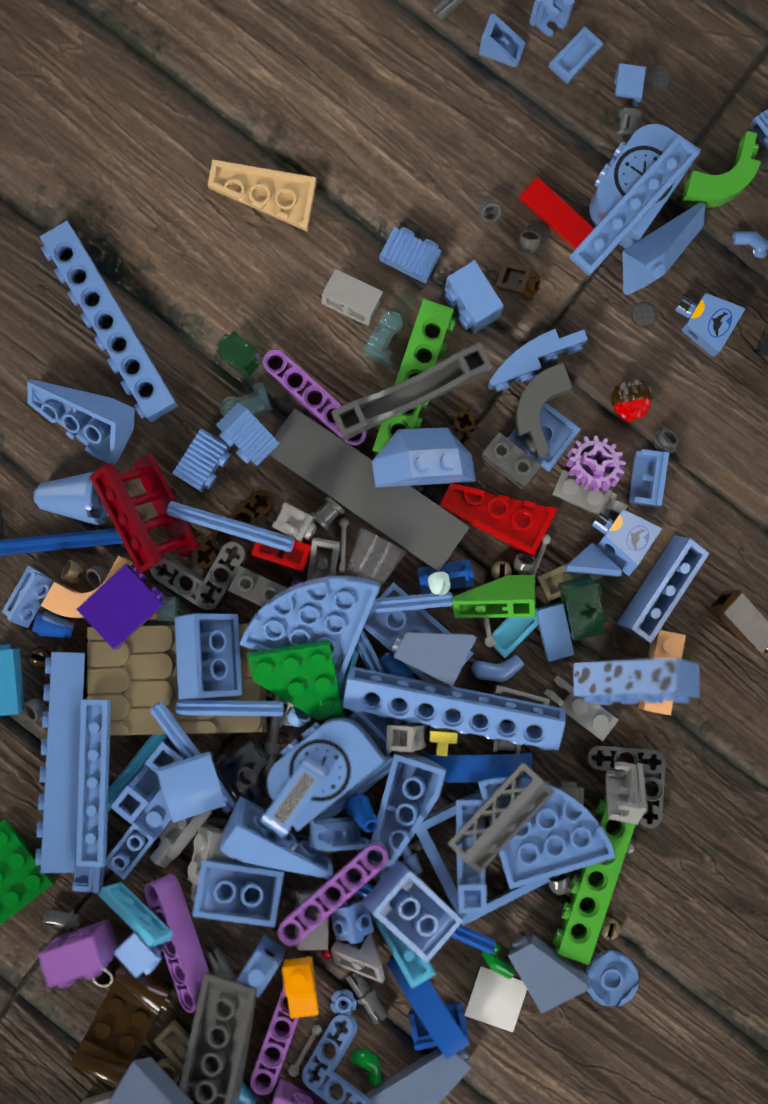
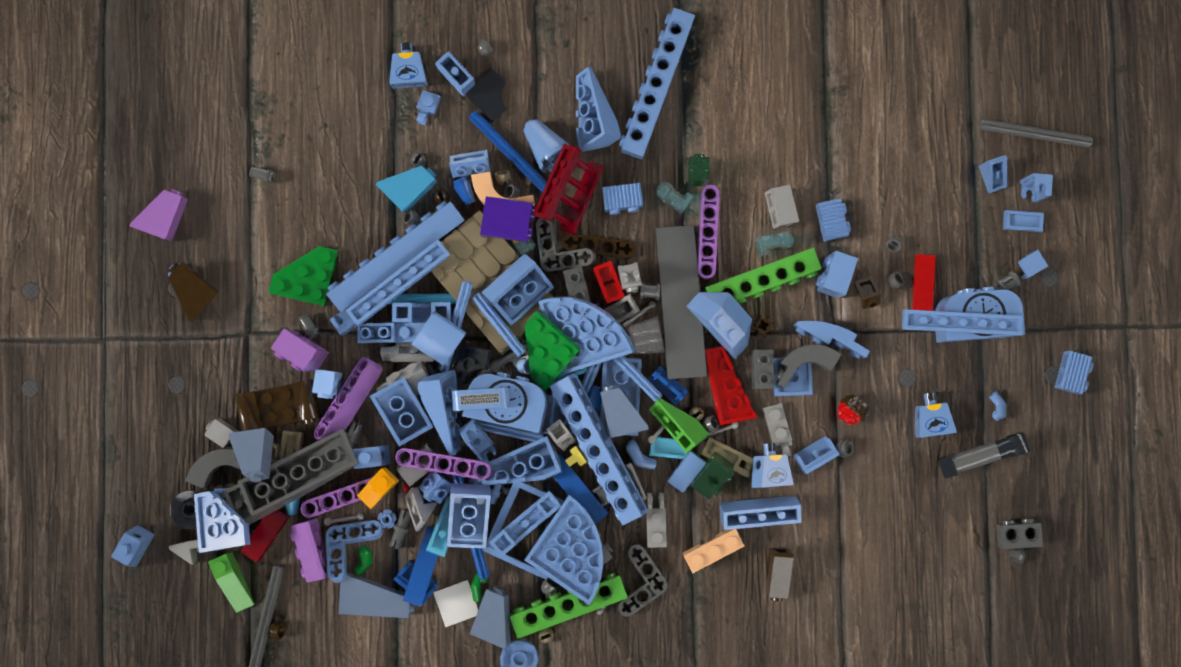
camera: 50 degrees right, 0 degrees up
(107, 976) = (296, 376): dark brown hinge -> none
(136, 914) = (345, 364): medium azure tile -> none
(230, 526) = (599, 243): medium blue axle -> none
(248, 434) = (657, 211): medium blue brick -> none
(269, 191) = (803, 112): tan wing -> none
(361, 811) = (500, 443): blue cone -> none
(426, 386) = (769, 290): dark grey arch -> none
(439, 583) = (661, 384): light aqua hinge -> none
(491, 841) = (560, 527): dark grey fence -> none
(593, 562) = (743, 461): medium blue slope -> none
(595, 463) = (799, 418): medium lavender gear -> none
(626, 792) = (629, 582): light grey hinge -> none
(637, 681) = (696, 537): medium blue brick -> none
(659, 250) = (950, 357): medium blue wedge -> none
(721, 189) = (1011, 362): bright green arch -> none

